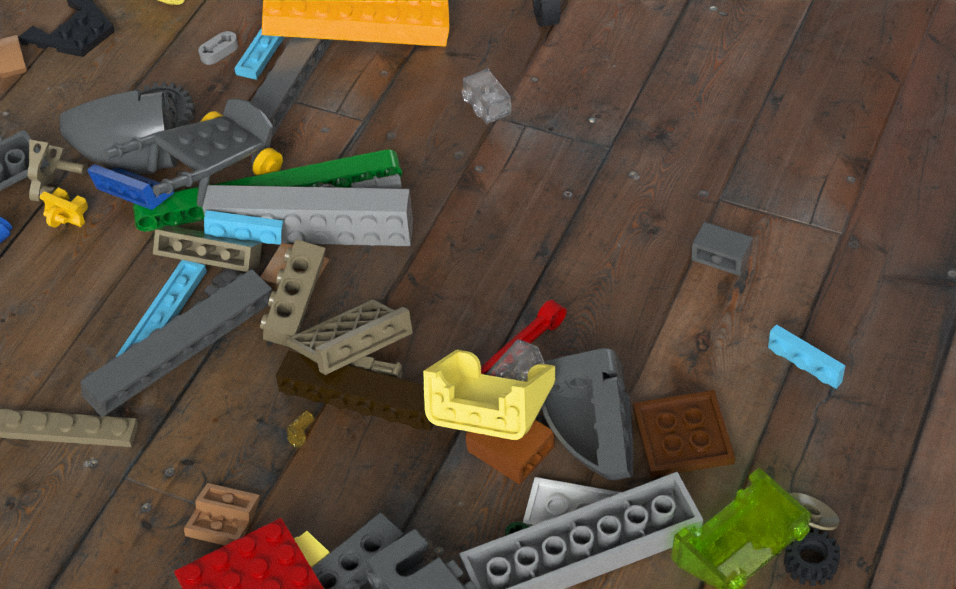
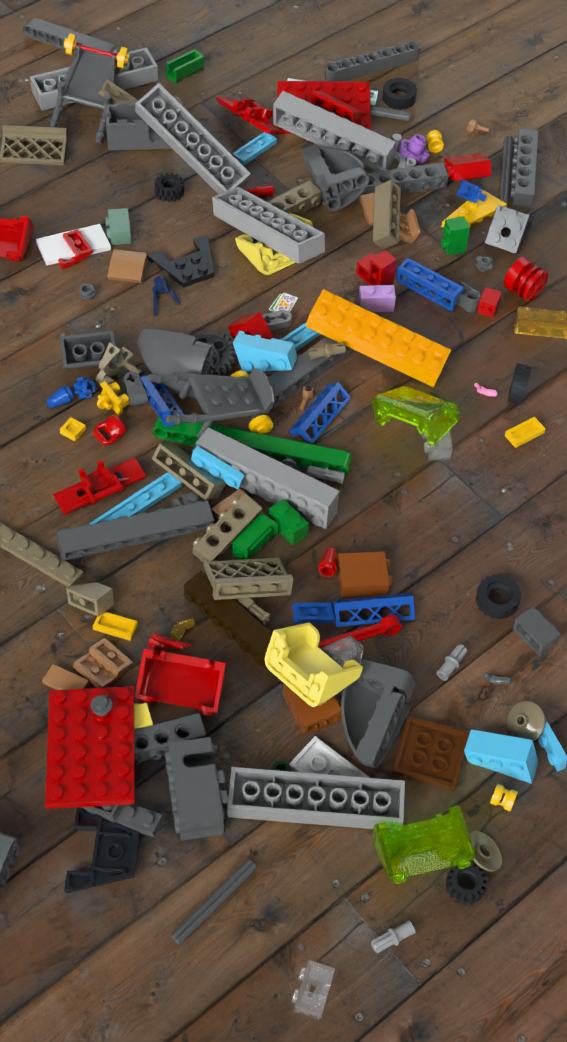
camera: 20 degrees right, 5 degrees up
(20, 210) = (84, 387): none -> blue gear
(31, 263) = (72, 429): none -> yellow plate
(57, 64) = (162, 286): none -> dark blue plant
(83, 239) = (114, 428): none -> red piece
(87, 186) = (134, 389): none -> dark grey piece
(100, 312) = (99, 484): none -> red piece
(163, 443) = (91, 597): none -> dark tan slope
(175, 555) = (62, 679): none -> medium nougat tile
(199, 64) = (252, 325): none -> red brick
(212, 463) = (115, 625): none -> yellow tile
(215, 26) = (283, 302): none -> sticker
(233, 80) = (264, 353): none -> medium azure wedge
(254, 555) = (101, 705): none -> dark grey plate
(283, 457) = (161, 643): none -> red plant
(302, 51) = (326, 350): none -> dark tan pin
(302, 112) = (307, 395): none -> medium nougat hand
(325, 118) = (319, 405): none -> blue fence
(331, 288) = (254, 537): none -> green window
(336, 486) = (180, 680): none -> red windscreen
(363, 254) = (291, 523): none -> green brick
(437, 279) = (328, 564): none -> red cone
(457, 337) = (313, 613): none -> blue plate
(466, 67) = (425, 411): none -> clear neon green windscreen
(486, 273) = (363, 574): none -> dark orange brick
(509, 27) = (488, 392): none -> bright pink piece
(512, 301) = (371, 602): none -> blue fence
(580, 49) = (525, 432): none -> yellow plate
(646, 324) = (451, 662): none -> light grey axle
(656, 247) = (502, 583): none -> black tyre
(701, 322) = (497, 680): none -> dark grey piece
(766, 395) = (502, 754): none -> medium azure wedge
(783, 350) = (533, 720): none -> dark tan dish
(796, 442) = (508, 799): none -> yellow wheel

